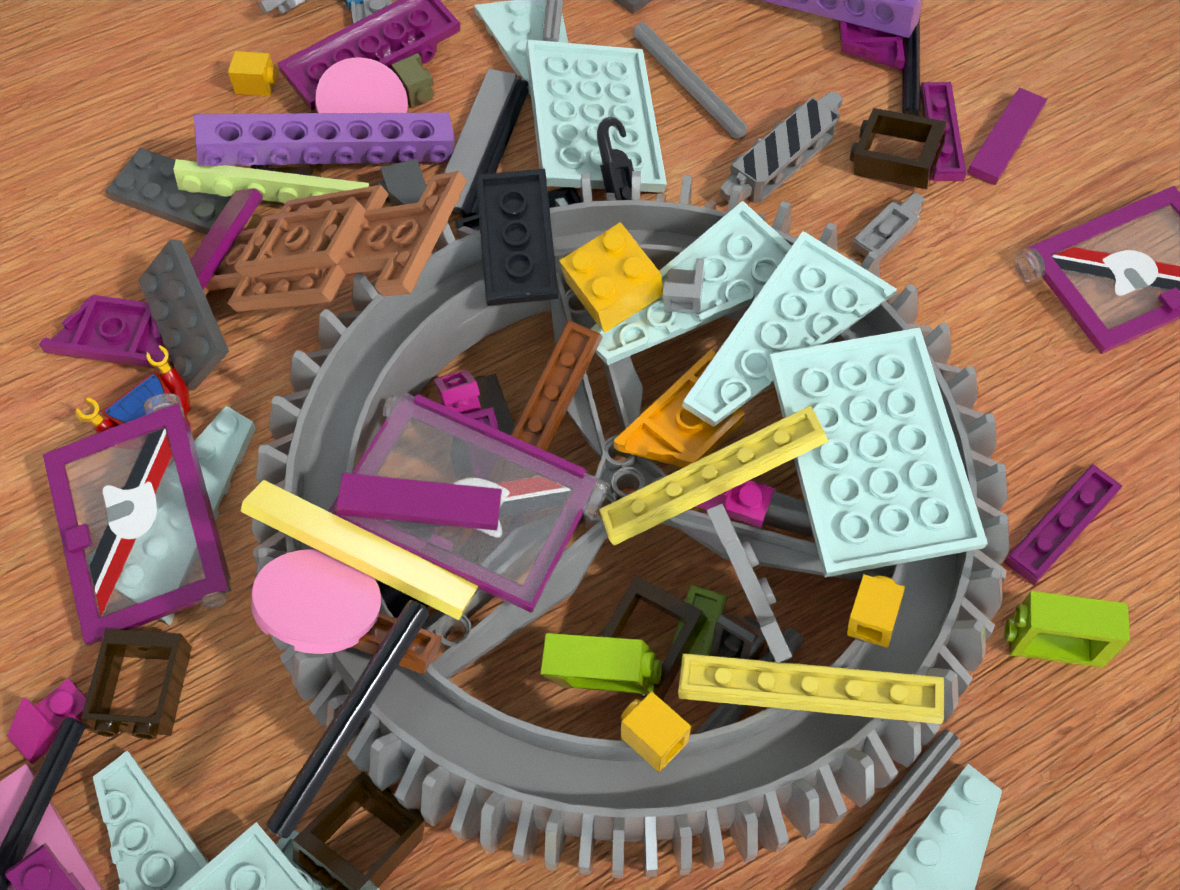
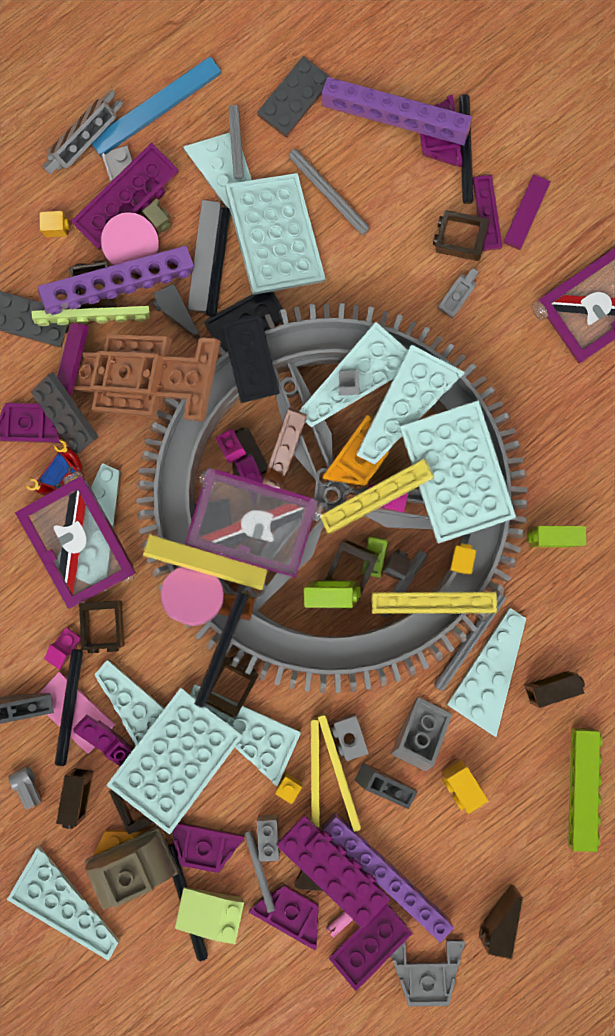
camera: 10 degrees left, 25 degrees up
(419, 501) = (230, 532): magenta tile -> none
(612, 277) = (308, 382): yellow brick -> none
(615, 165) = (297, 285): black plate -> none
(654, 730) = (363, 634): yellow brick -> none
(756, 590) = (392, 535): light grey wing -> none
(784, 149) = (393, 243): light grey hinge -> none
(1062, 524) = (557, 471): magenta tile -> none

